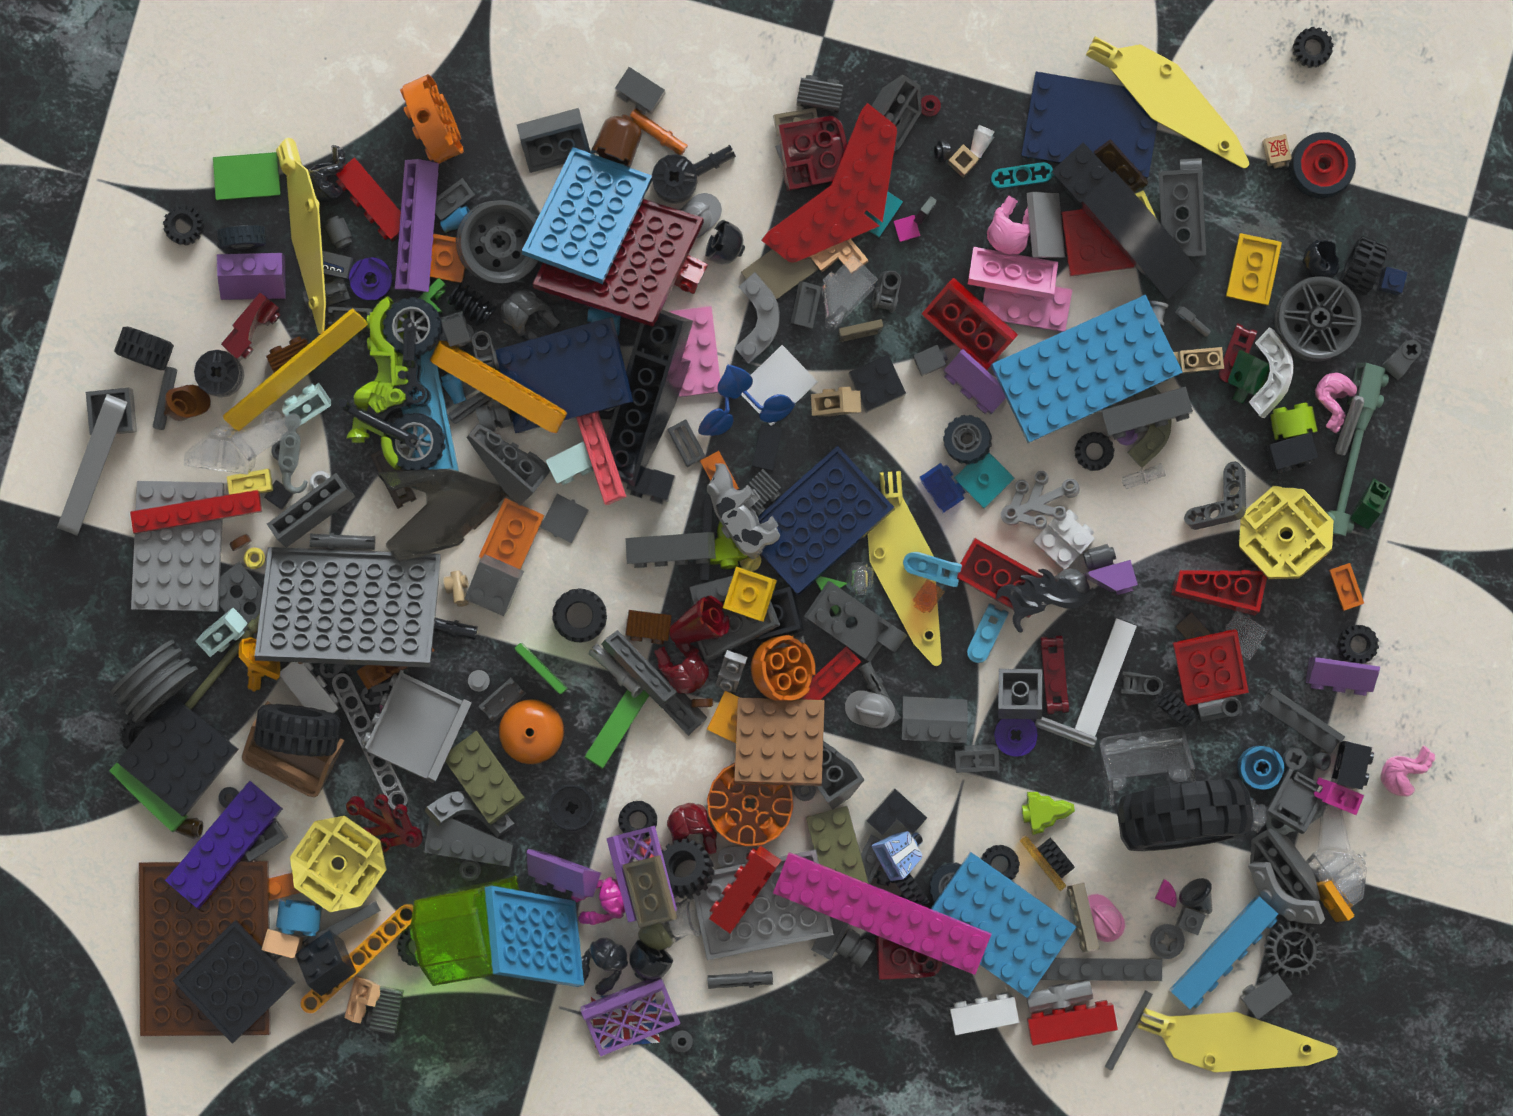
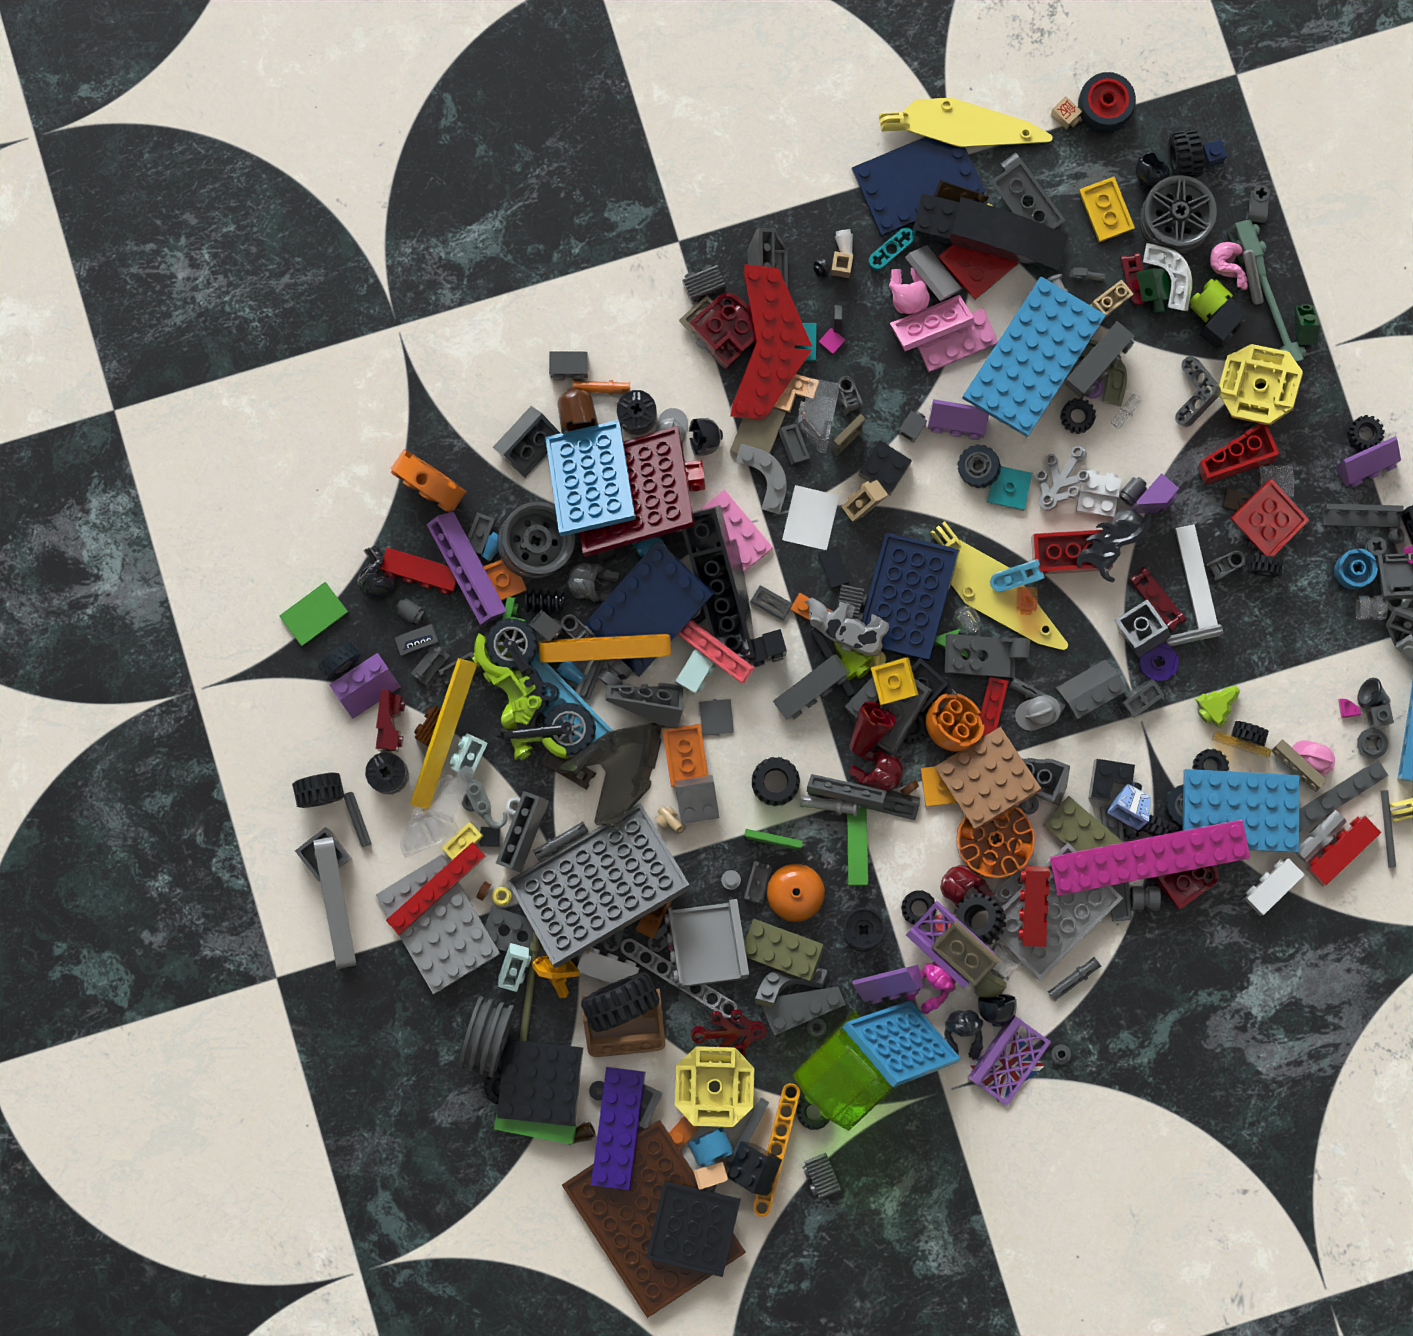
camera: 30 degrees left, 5 degrees down
(186, 402) = (376, 811): reddish brown piece -> none
(192, 234) = (300, 680): black tyre -> none
(305, 228) = (384, 623): light yellow wing -> none
(363, 993) = (795, 1175): light nougat plate -> none
(367, 267) = (449, 639): dark purple plate -> none
(455, 628) = (688, 852): black pin -> none
(648, 625) = (832, 756): reddish brown brick -> none
(714, 160) = (657, 380): black pin -> none
(731, 671) = (916, 750): light grey slope -> none
(732, 385) = (779, 535): blue plant -> none
(930, 112) = (794, 236): dark red plate -> none
(942, 487) = (984, 513): clear blue brick -> none
(969, 323) = (925, 379): red brick -> none
(986, 634) = (1087, 602): medium azure plate -> none
(1143, 755) = (1265, 613): clear windscreen -> none
(1185, 815) = (1327, 636): black tyre -> none
(1216, 709) = (1295, 546): dark grey piece -> none
(1322, 38) = (1042, 33): black tyre -> none
(1346, 586) = (1328, 396): orange plate -> none

